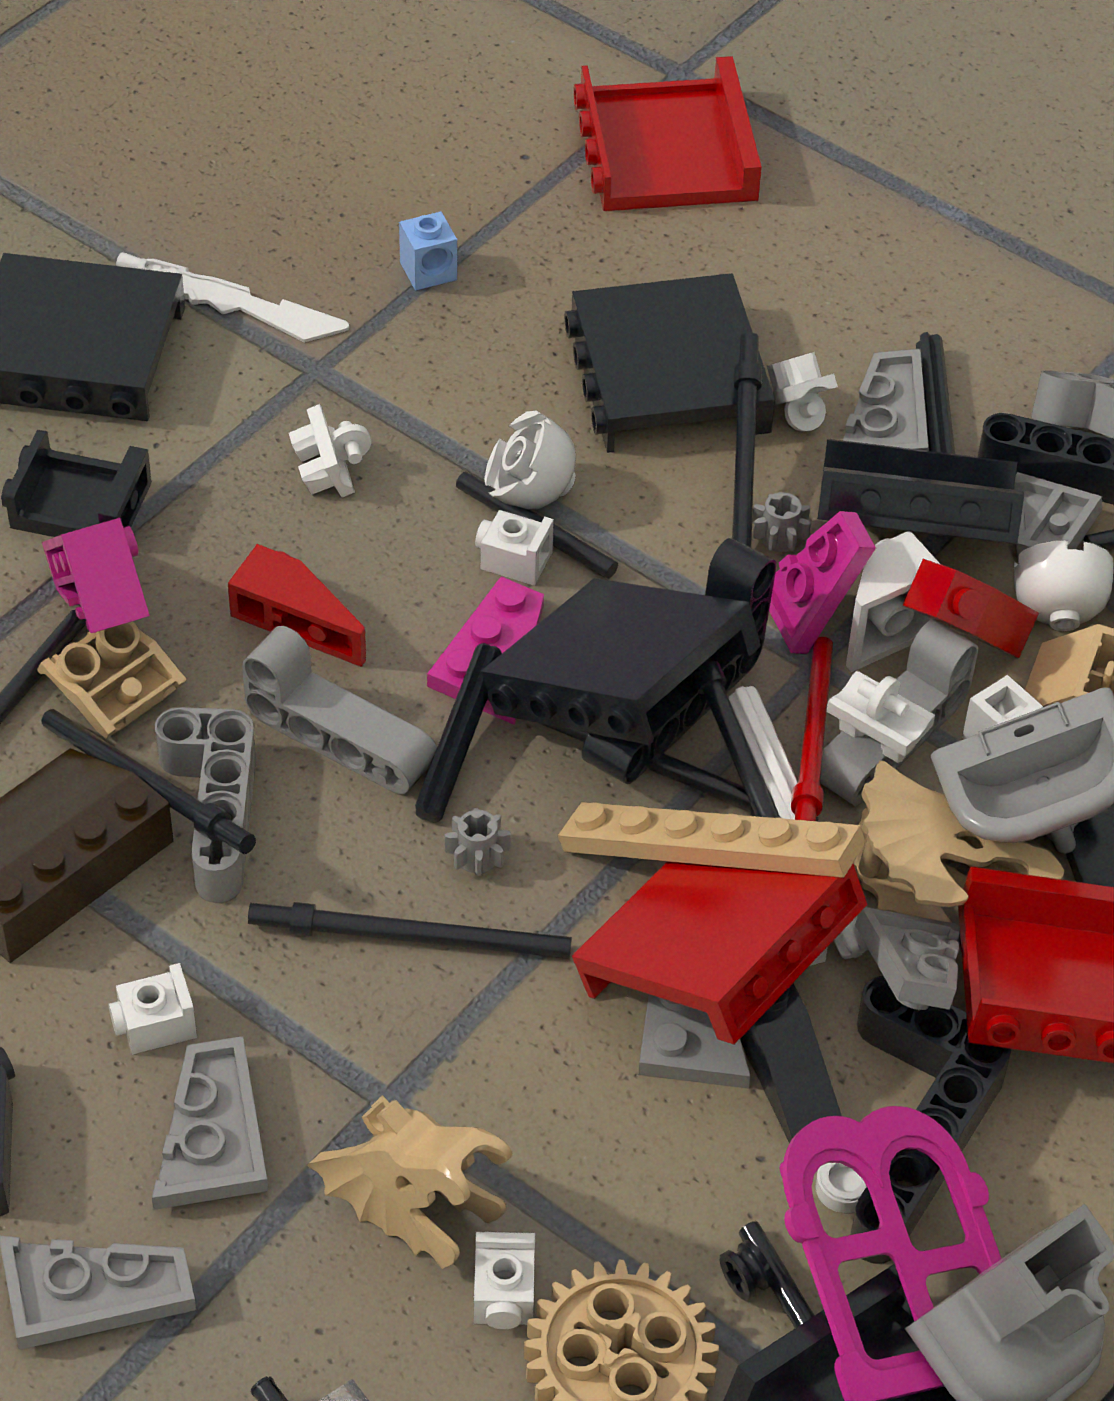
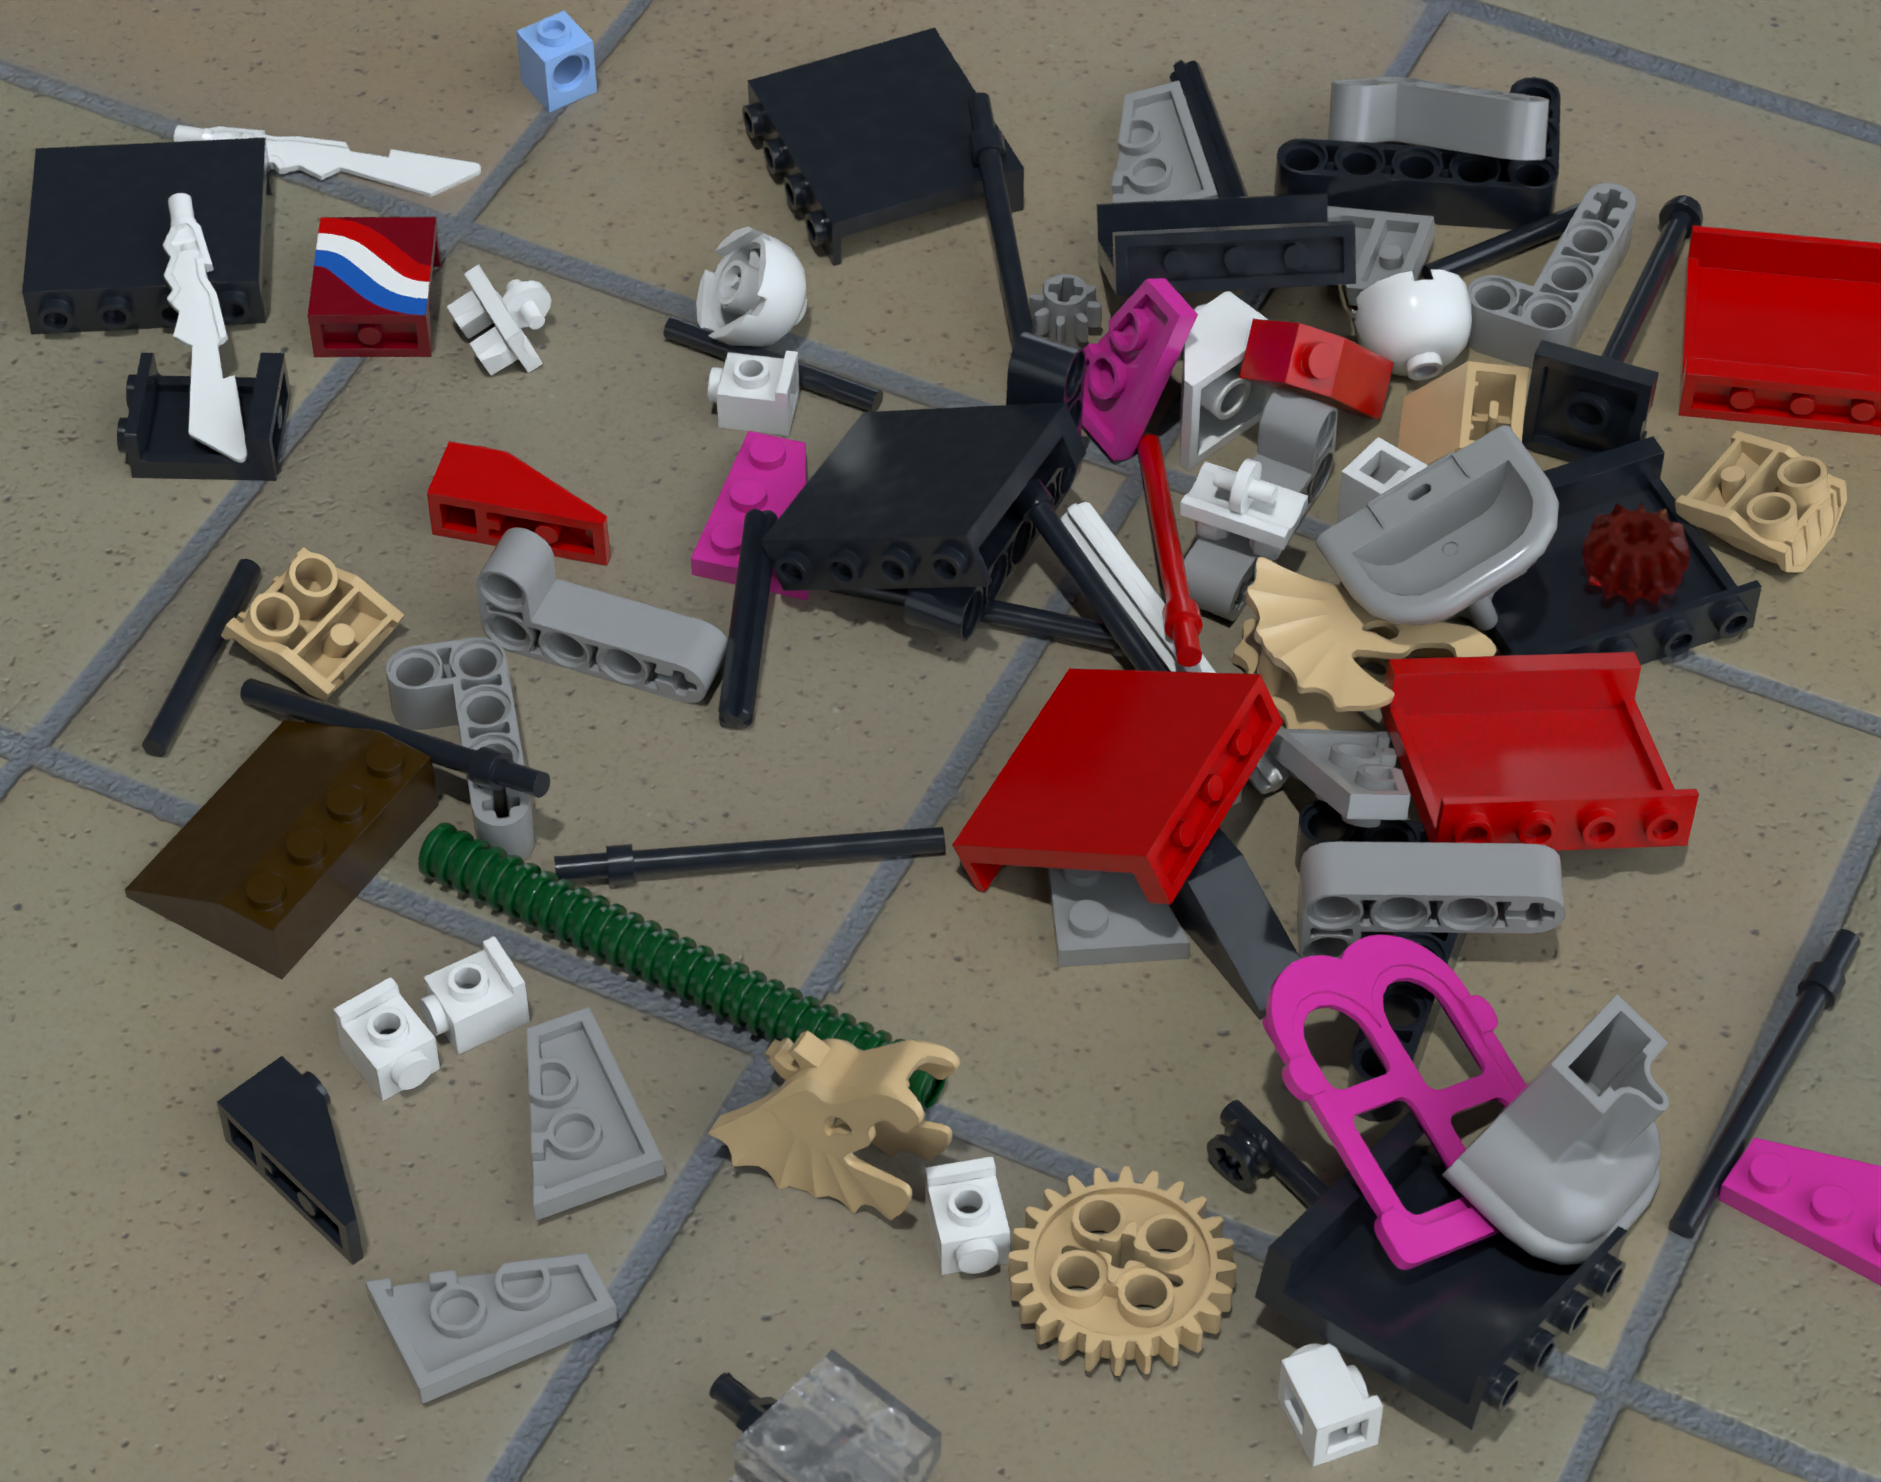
camera: 10 degrees left, 0 degrees up
(74, 1032) = (386, 1040): none -> white brick
(85, 476) = (214, 400): none -> white sword
(98, 573) = (269, 507): dark pink wedge -> none
(235, 407) = (373, 286): none -> panel
(316, 1006) = (644, 947): none -> dark green piece
(477, 841) = (804, 738): light grey gear -> none
(713, 839) = (1084, 681): tan plate -> none
(797, 384) = (1045, 146): white hips -> none
(839, 1187) = (1330, 1039): white tile -> none
(953, 1073) = (1424, 889): none -> light grey beam

